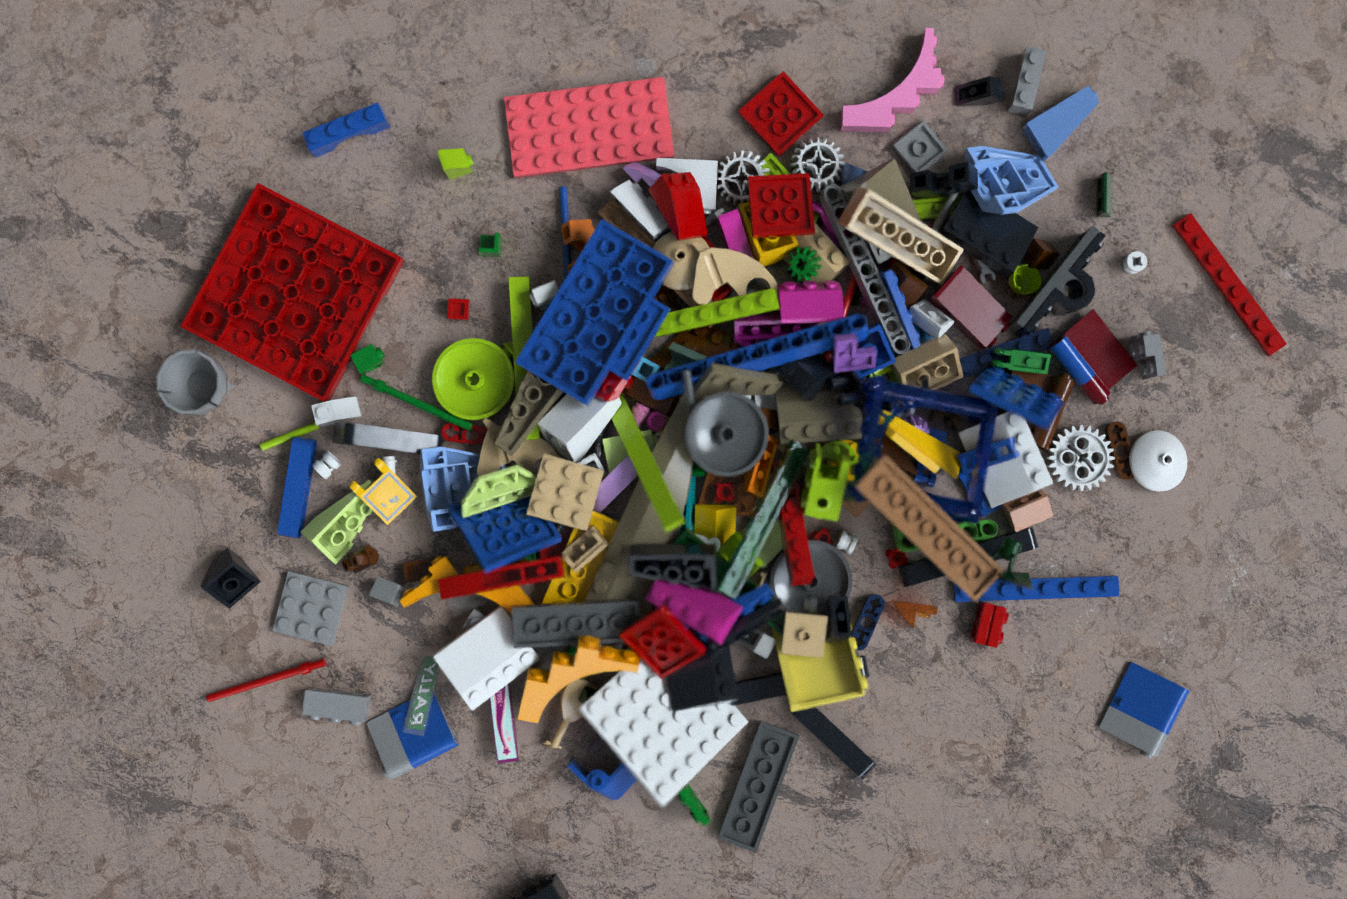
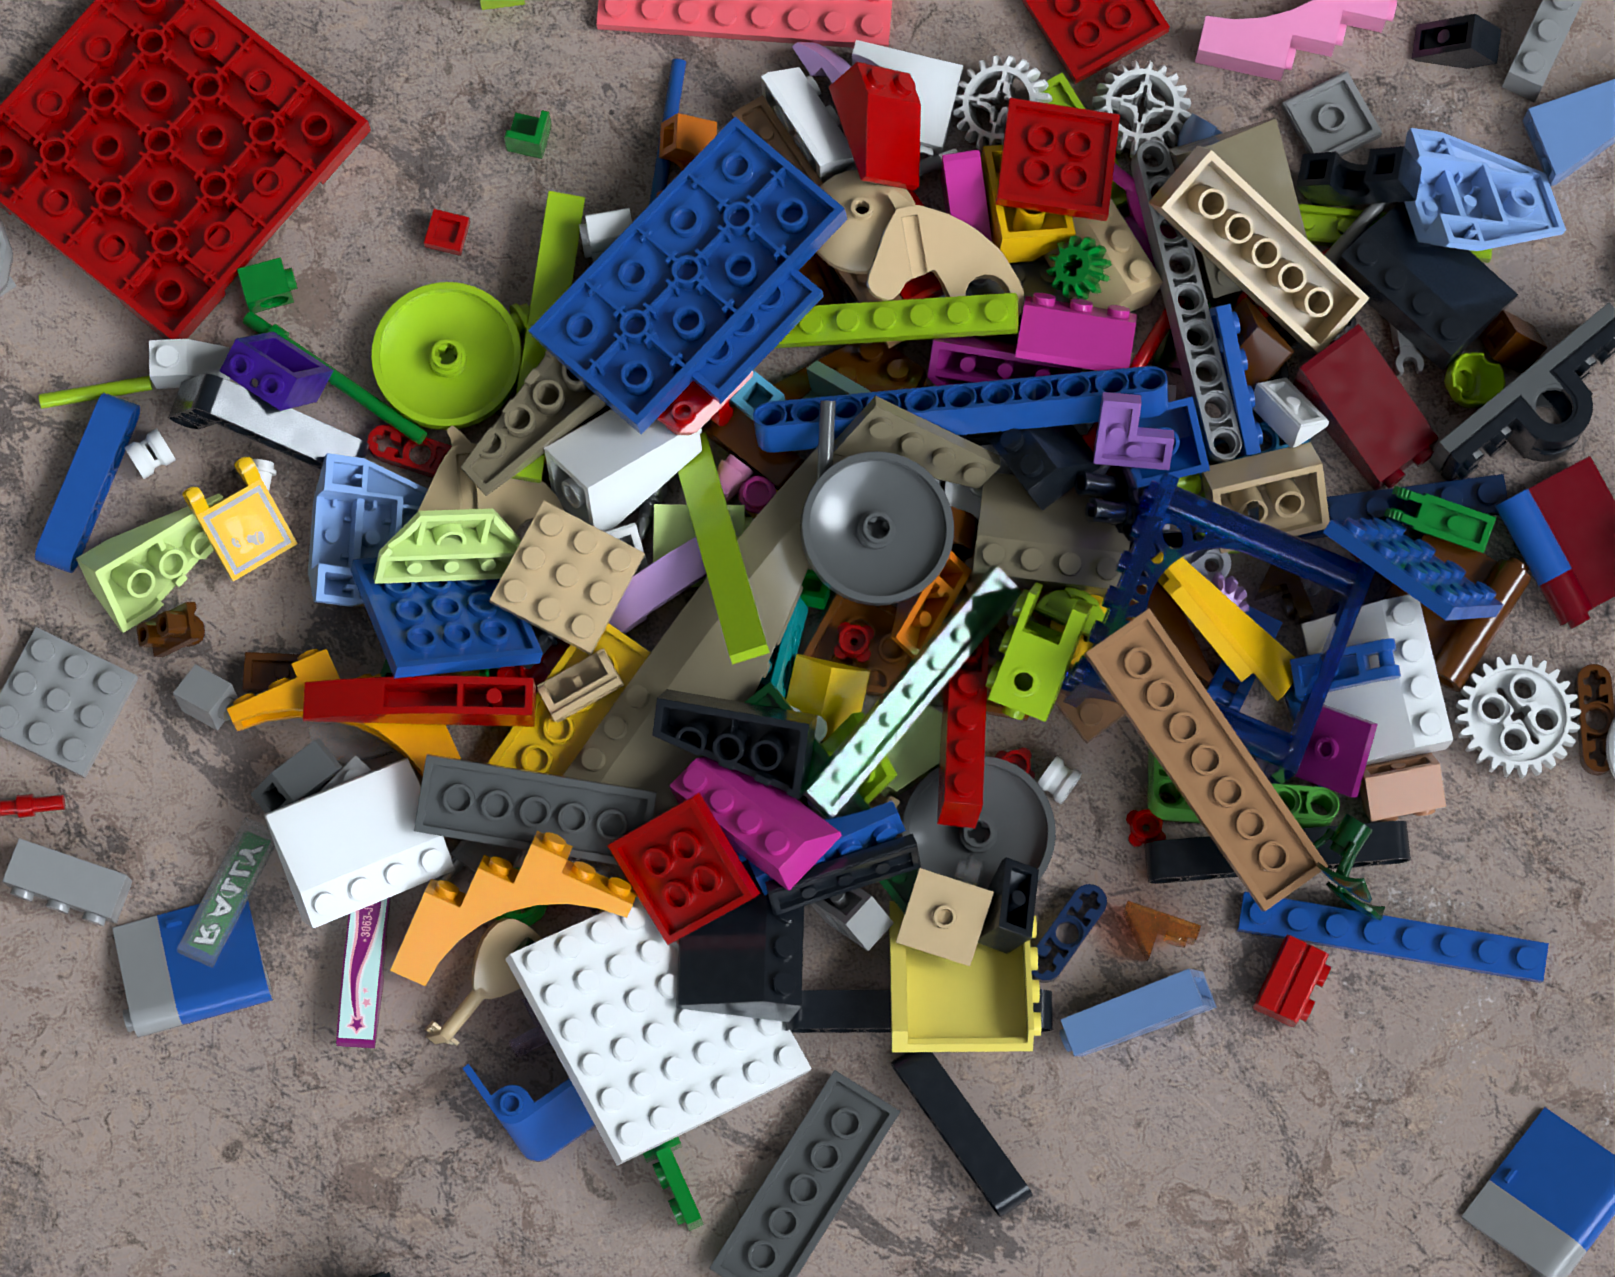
camera: 15 degrees right, 10 degrees down
(384, 407) = (283, 371): none -> dark purple window
(445, 628) = (297, 777): none -> dark grey slope
(913, 658) = (1137, 1013): none -> medium blue slope
(995, 499) = (1338, 751): none -> magenta plate

